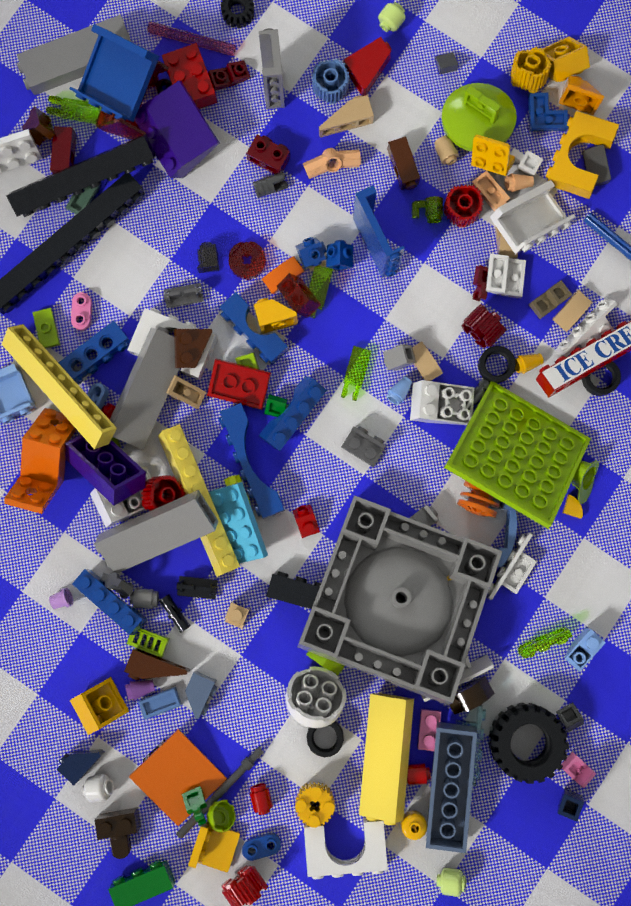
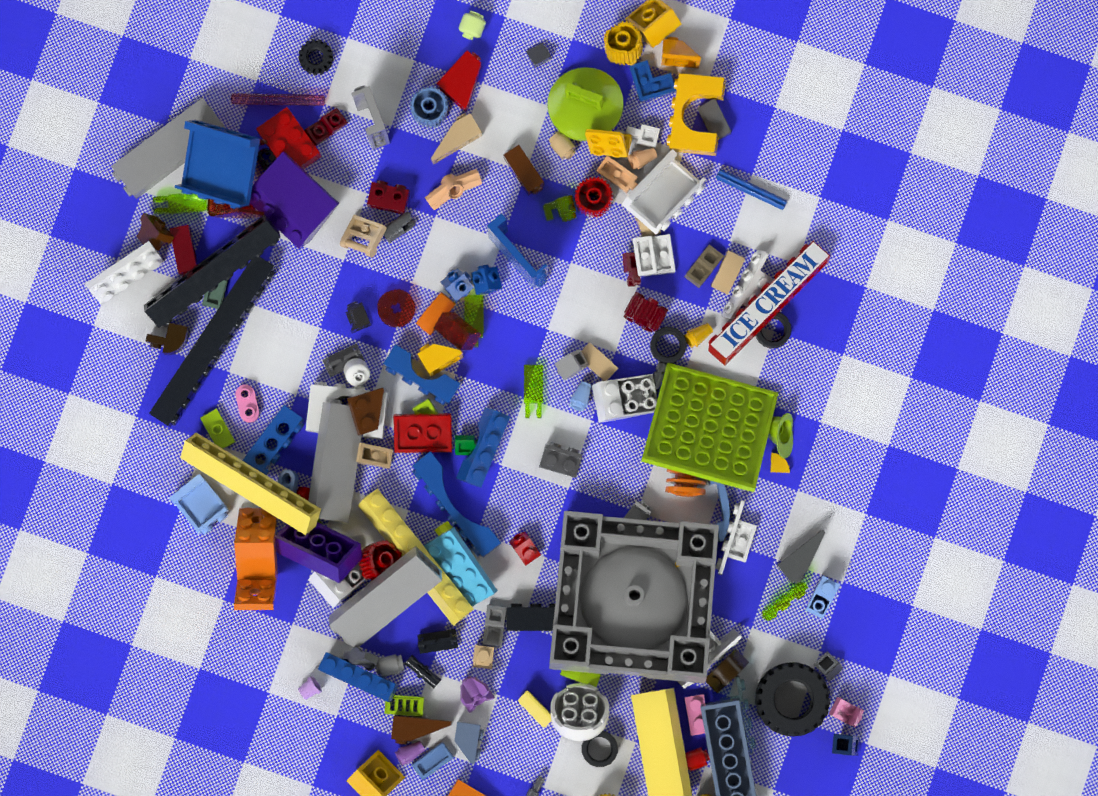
camera: 15 degrees left, 0 degrees up
(28, 234) = (174, 342): none -> dark brown brick
(192, 308) = (356, 372): none -> white head
(217, 648) = (474, 692): none -> medium lavender brick
(237, 177) = (366, 230): none -> tan plate
(255, 588) = (494, 626): none -> light grey slope
(273, 679) = (535, 709): none -> light yellow slope
(570, 607) = (799, 561): none -> dark grey slope

